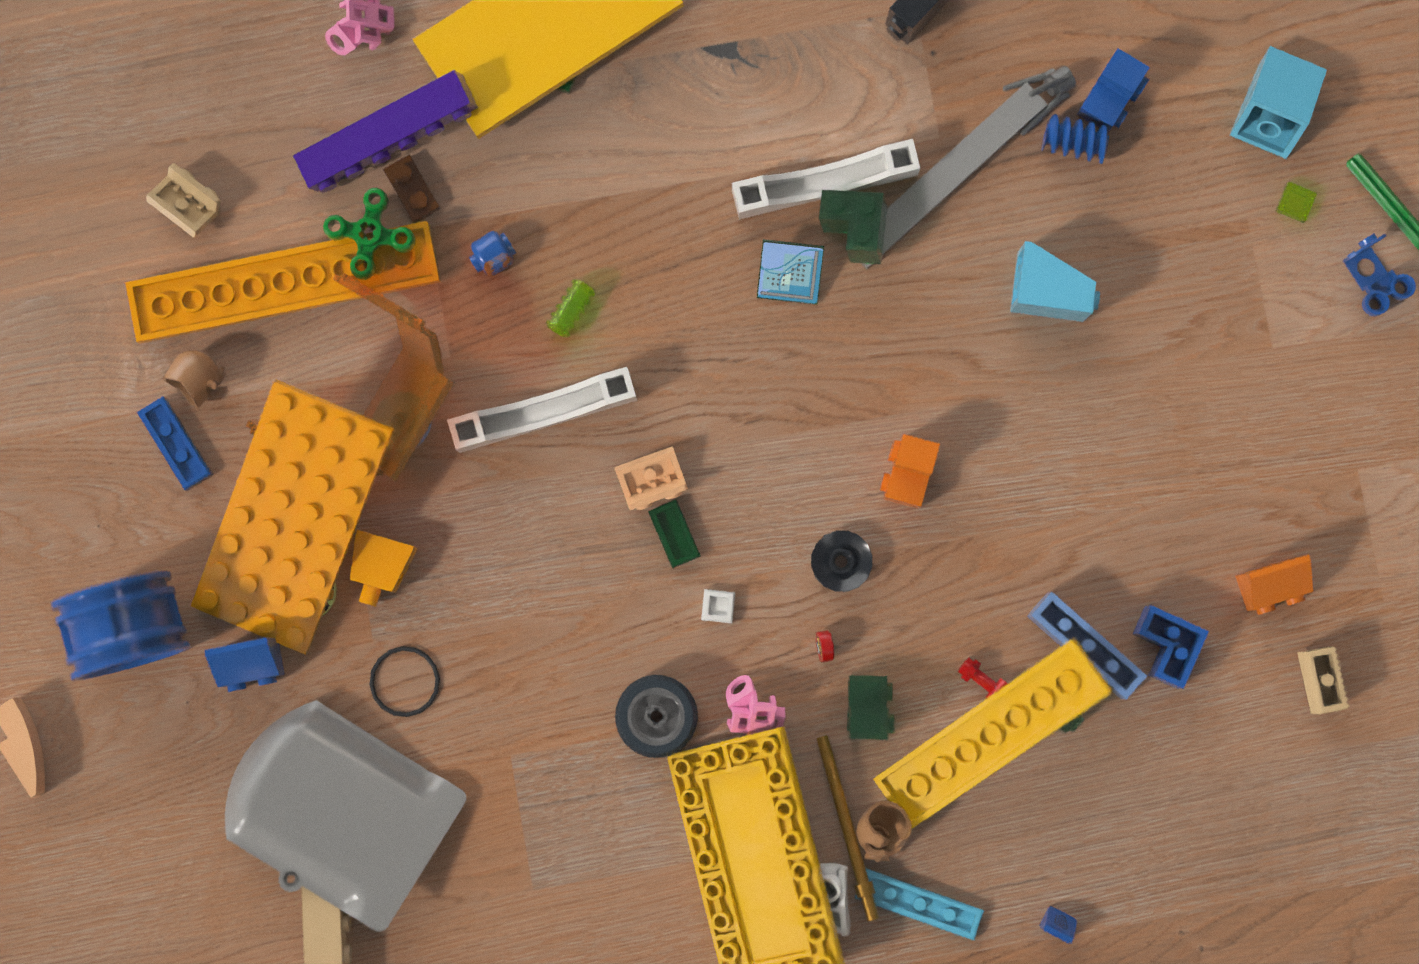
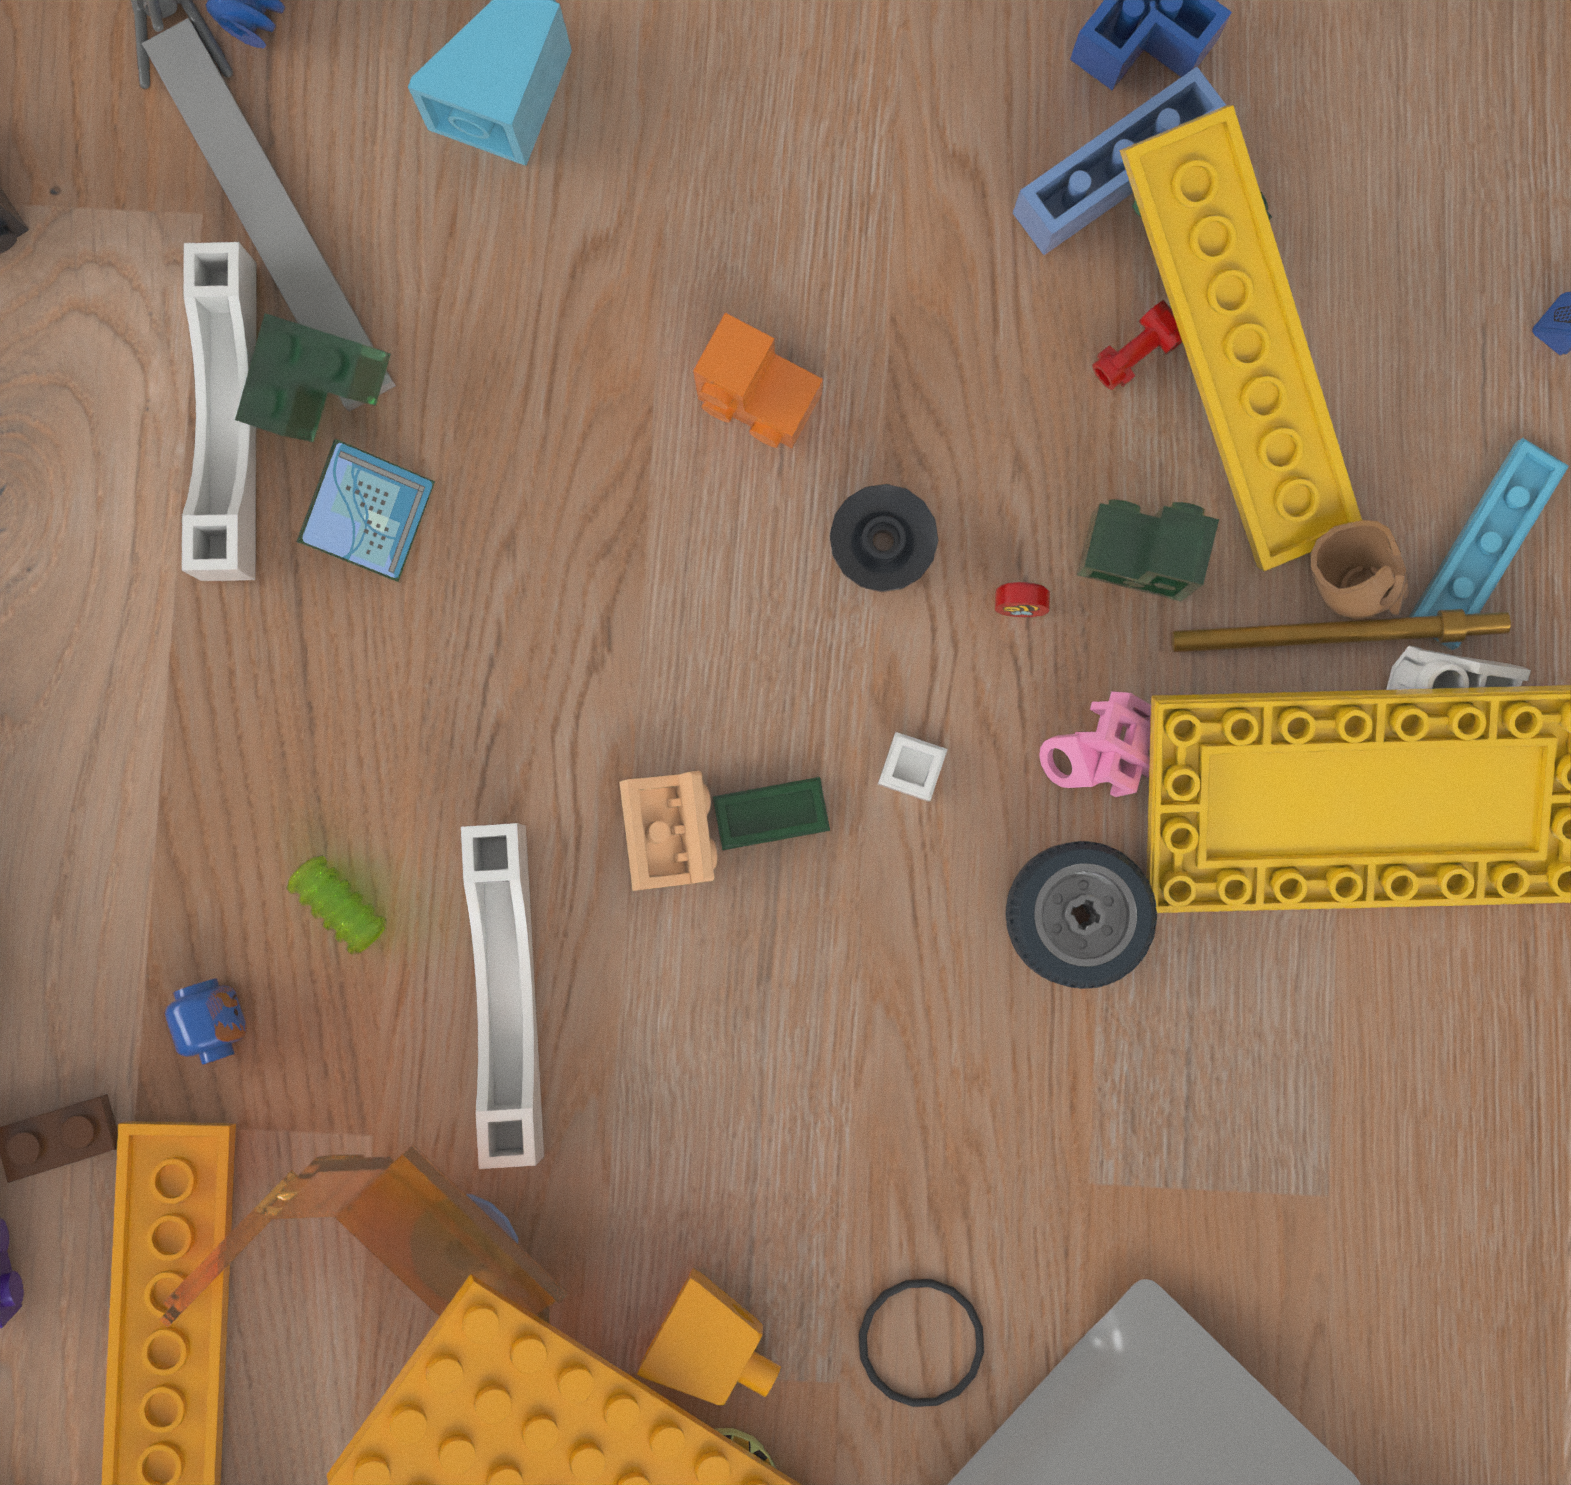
camera: 80 degrees left, 0 degrees up
(381, 237) = (98, 1253): green gear -> none

